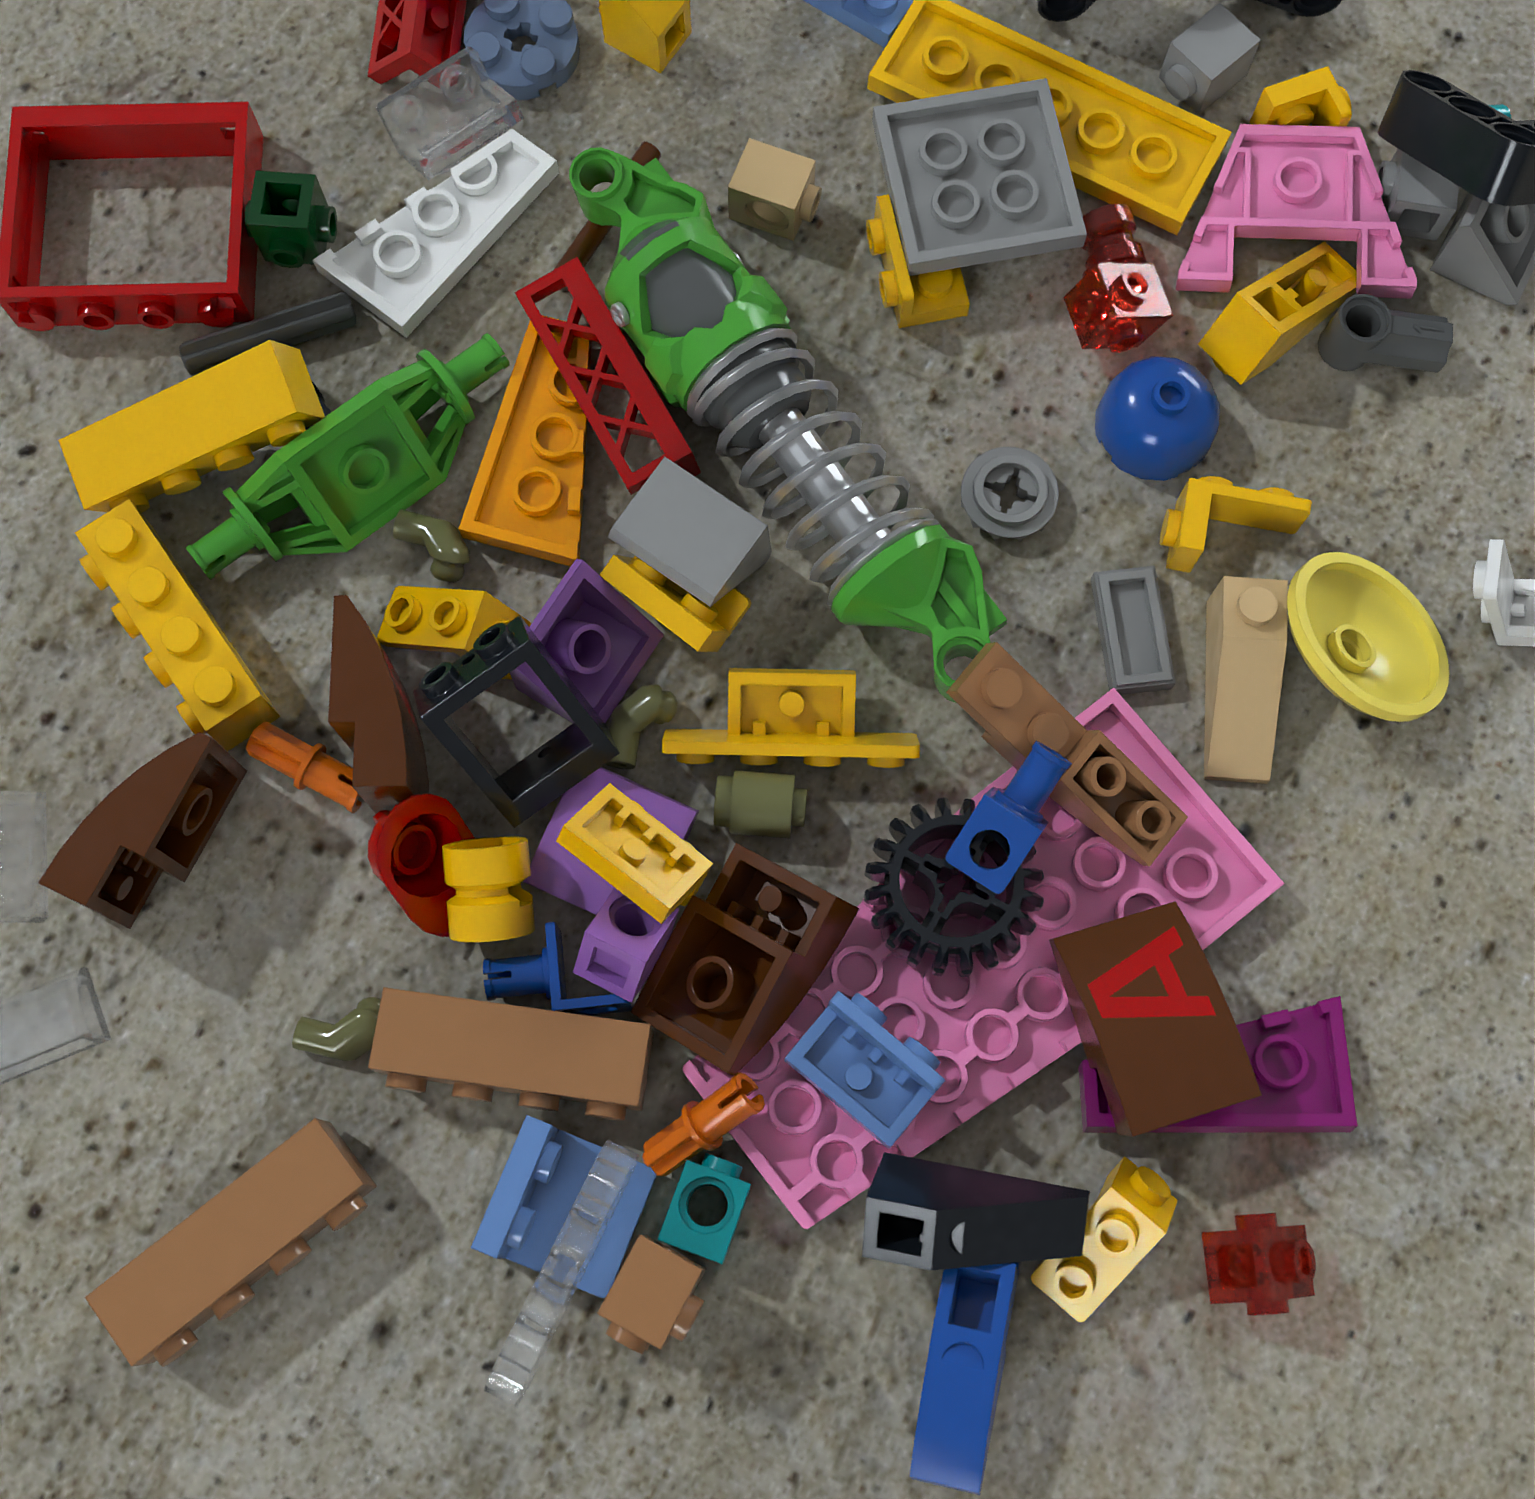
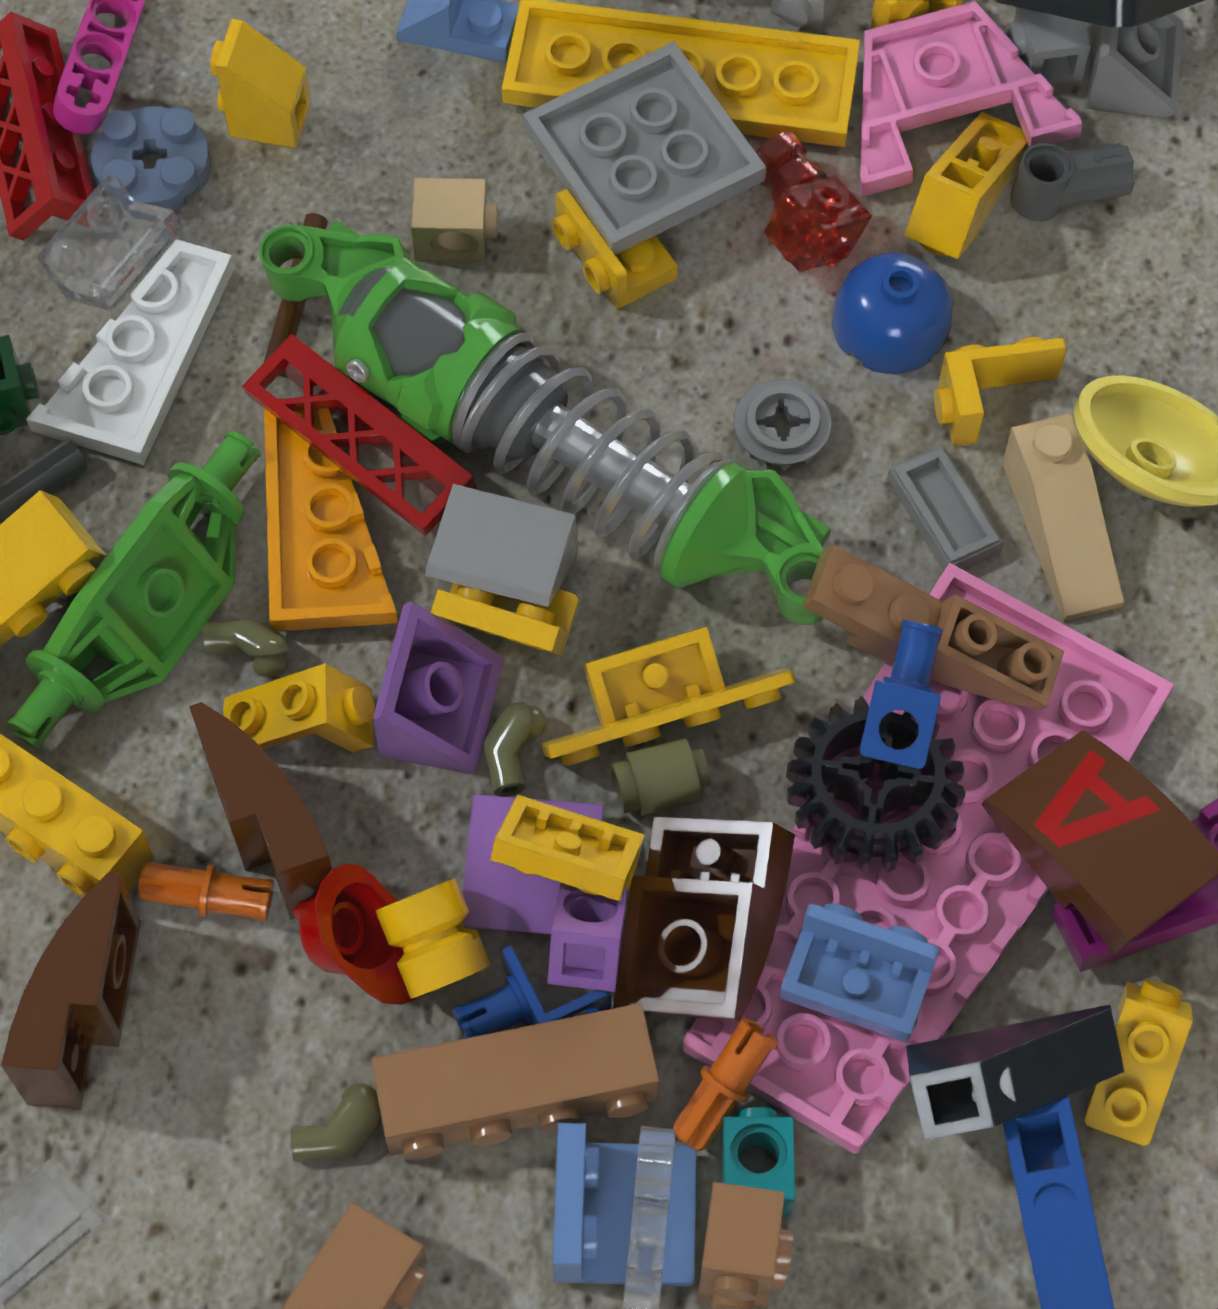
camera: 20 degrees left, 10 degrees down
(548, 769) = (452, 803): black window -> none

